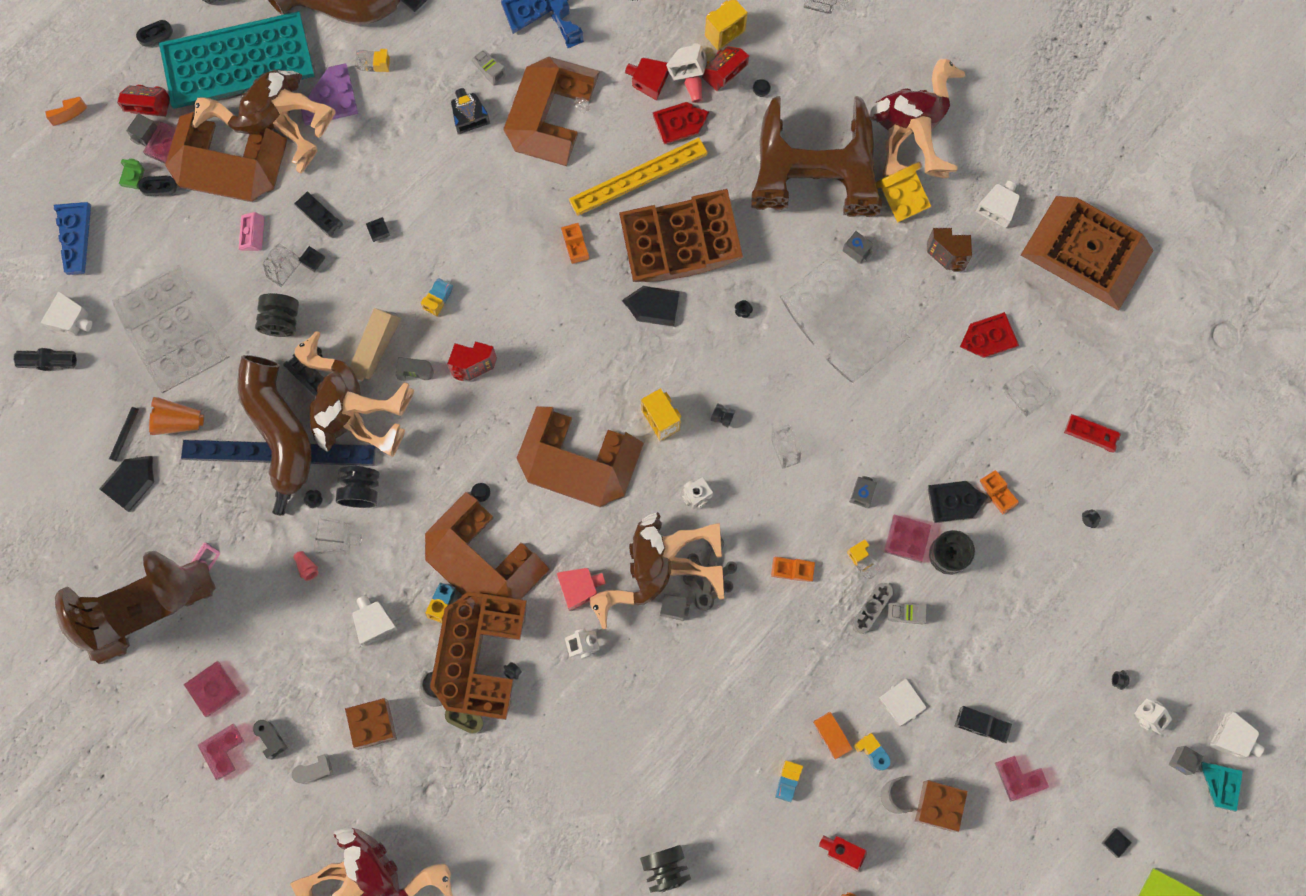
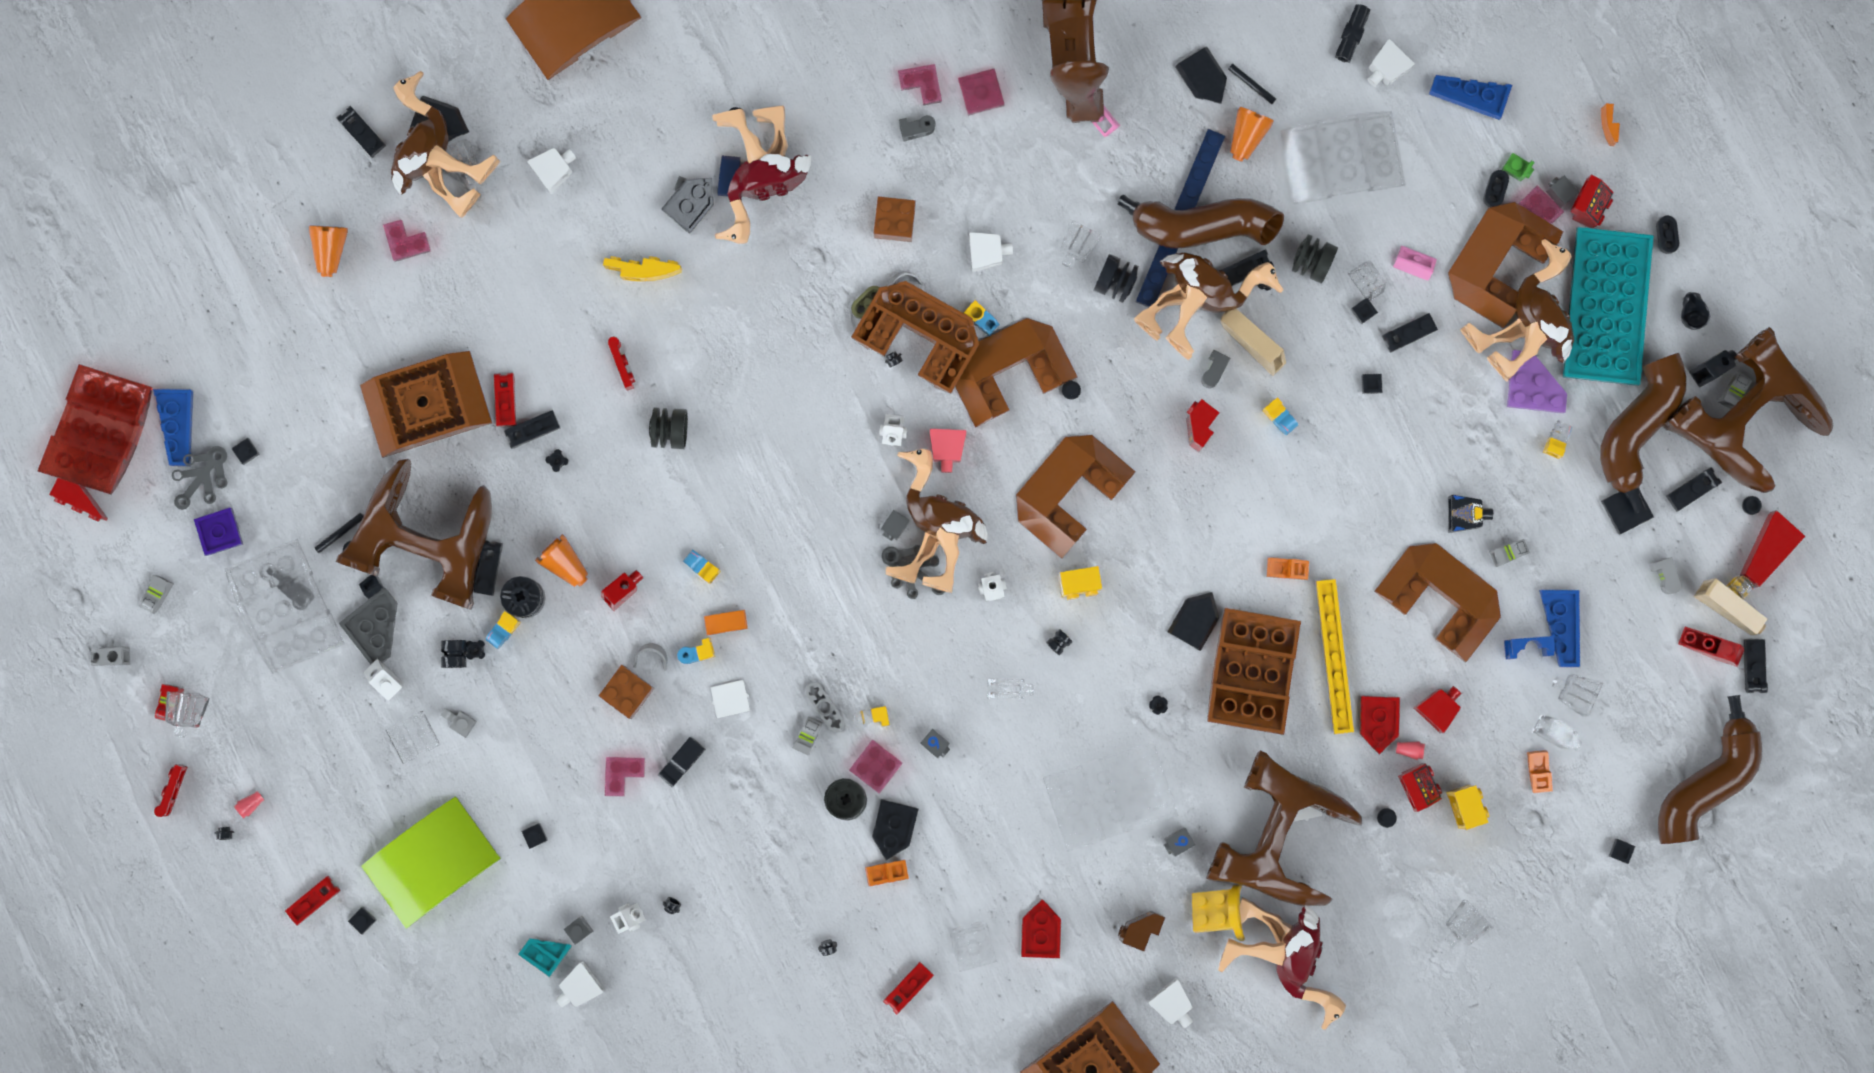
camera: 110 degrees right, 10 degrees up
(305, 566) = (1061, 208): coral cone -> none
(313, 503) = (1123, 240): black plate -> none
(313, 772) = (872, 150): light grey leg -> none
(582, 104) = (1432, 629): clear plate -> none
(687, 62) = (1438, 752): white torso -> none
(793, 569) = (888, 649): orange slope -> none

